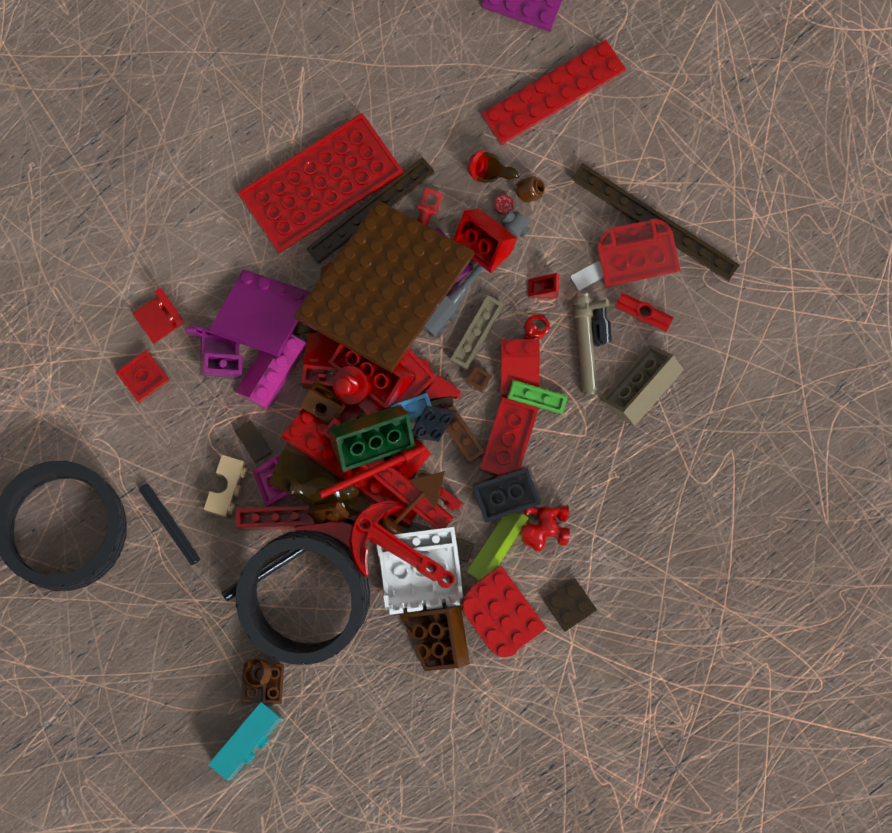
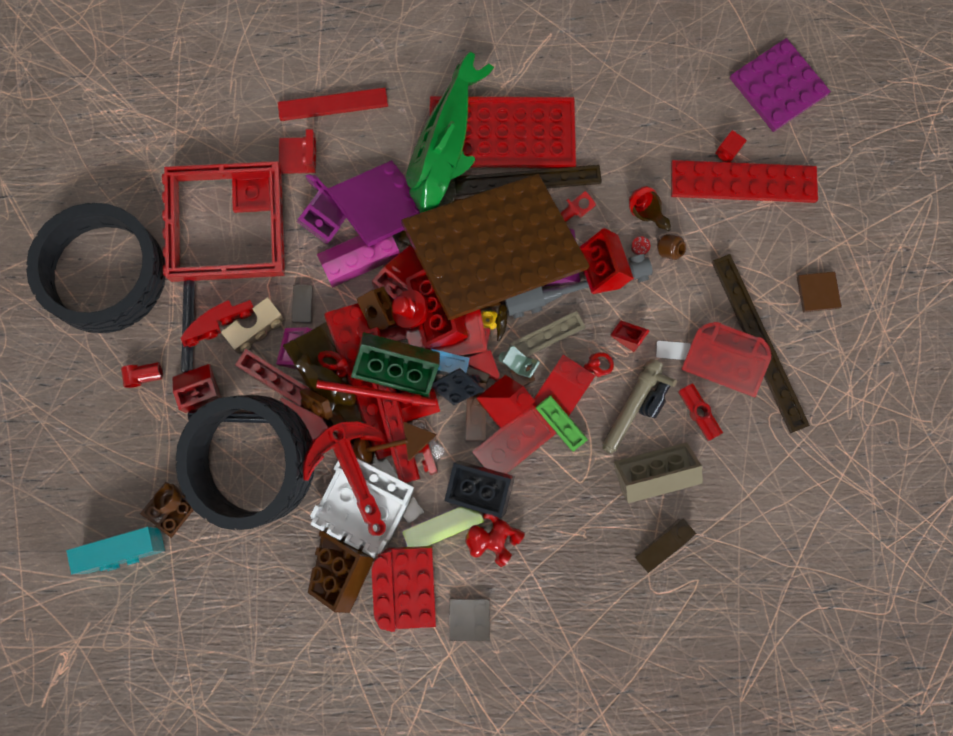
camera: 25 degrees right, 0 degrees up
(106, 375) = (170, 215): none -> red window
(155, 593) = (135, 375): none -> red piece
(157, 253) = (332, 104): none -> red tile
(188, 509) = (208, 323): none -> red slope
(214, 569) = (195, 388): none -> red slope
(280, 233) = (439, 148): none -> green animal
(325, 466) = (342, 363): none -> red piece
(419, 346) = (491, 316): none -> yellow plate
(430, 346) = (501, 322): none -> dark brown bar
(451, 487) = (437, 450): none -> clear slope
(468, 369) = (518, 362): none -> sand green bracket
(479, 408) = (505, 400): none -> red slope
(523, 70) = (730, 146): none -> red brick
(676, 146) = (819, 292): none -> reddish brown tile
(686, 439) = (665, 545): none -> dark brown slope

